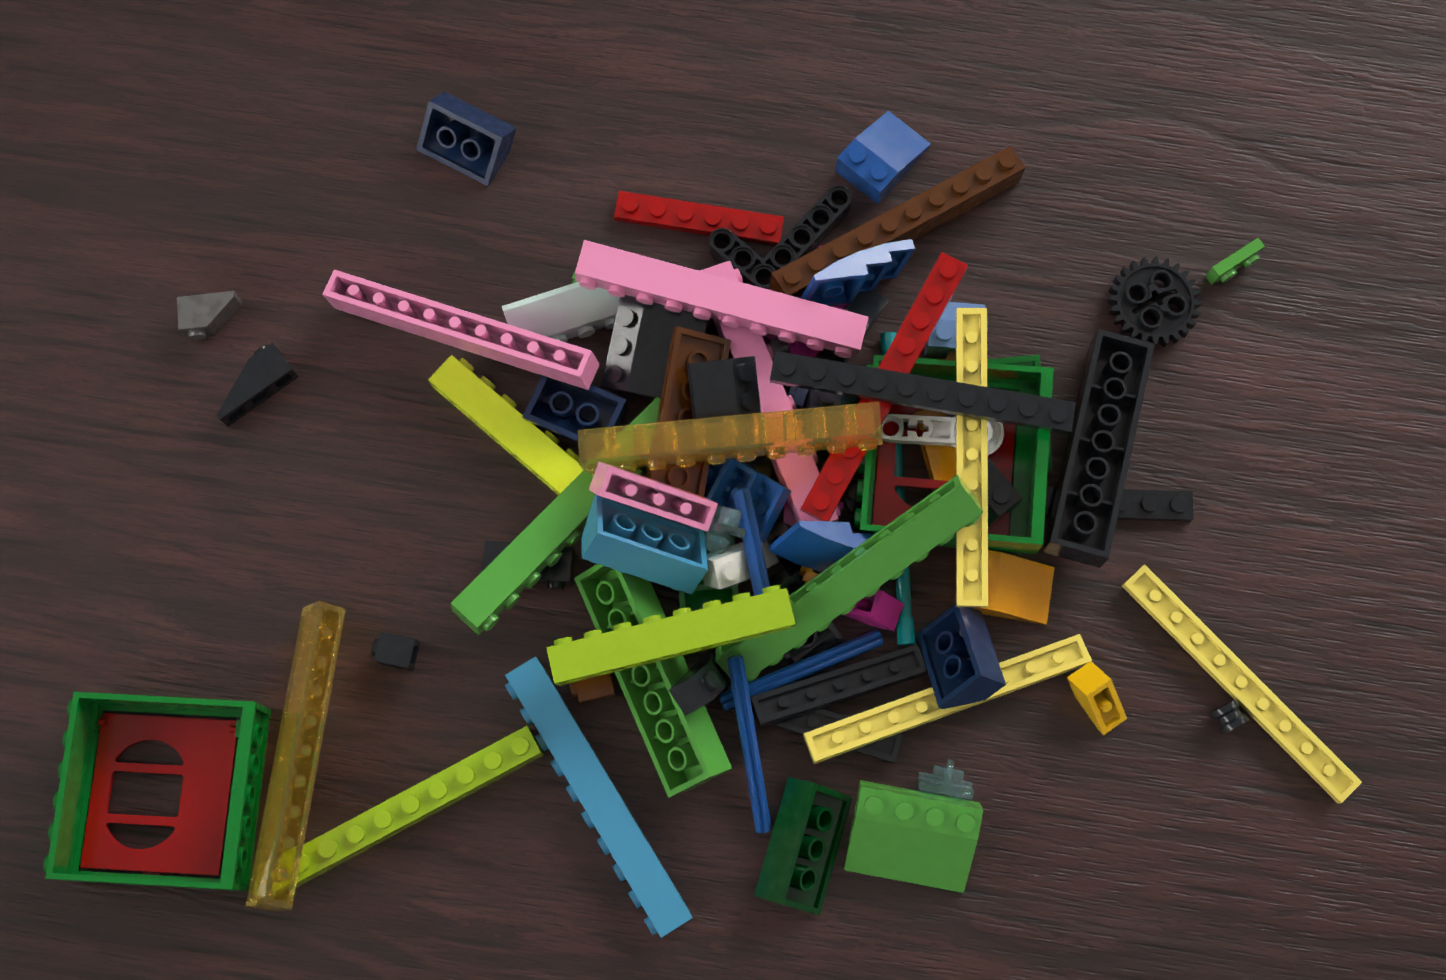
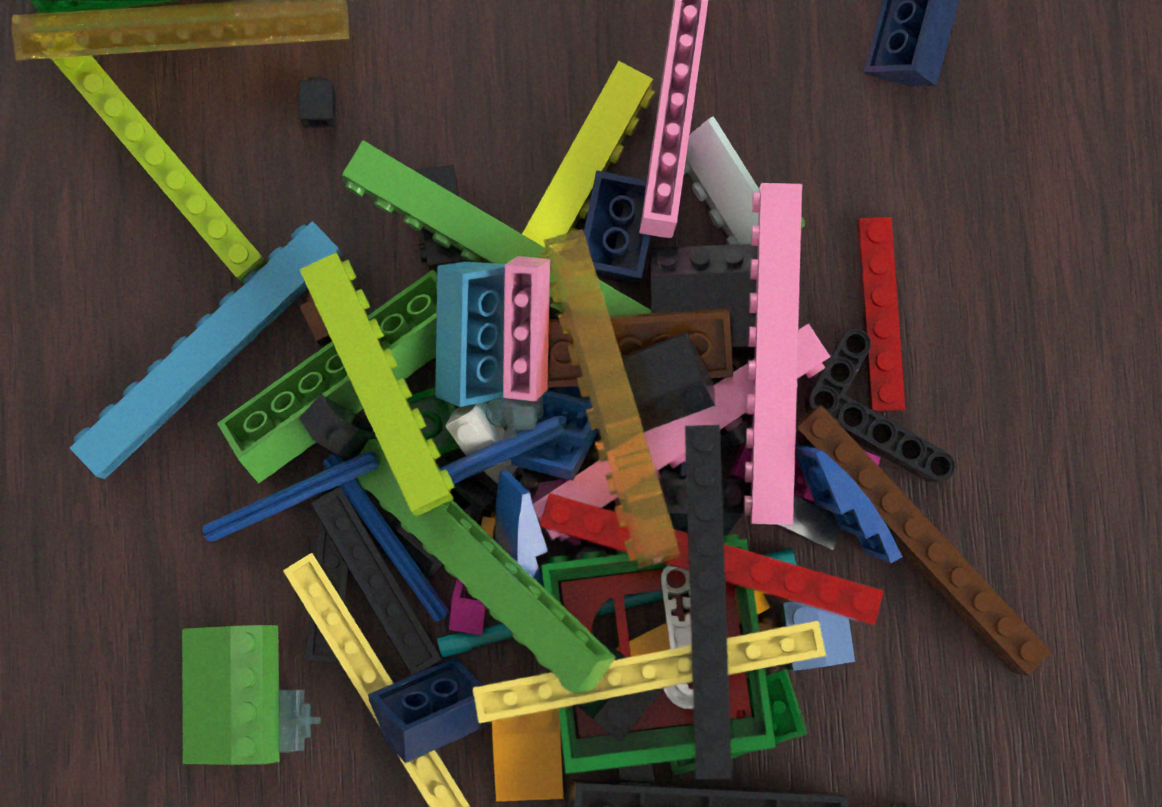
camera: 75 degrees right, 5 degrees up
(803, 846) = (196, 579): dark green slope -> none
(881, 156) = (1007, 506): blue slope -> none

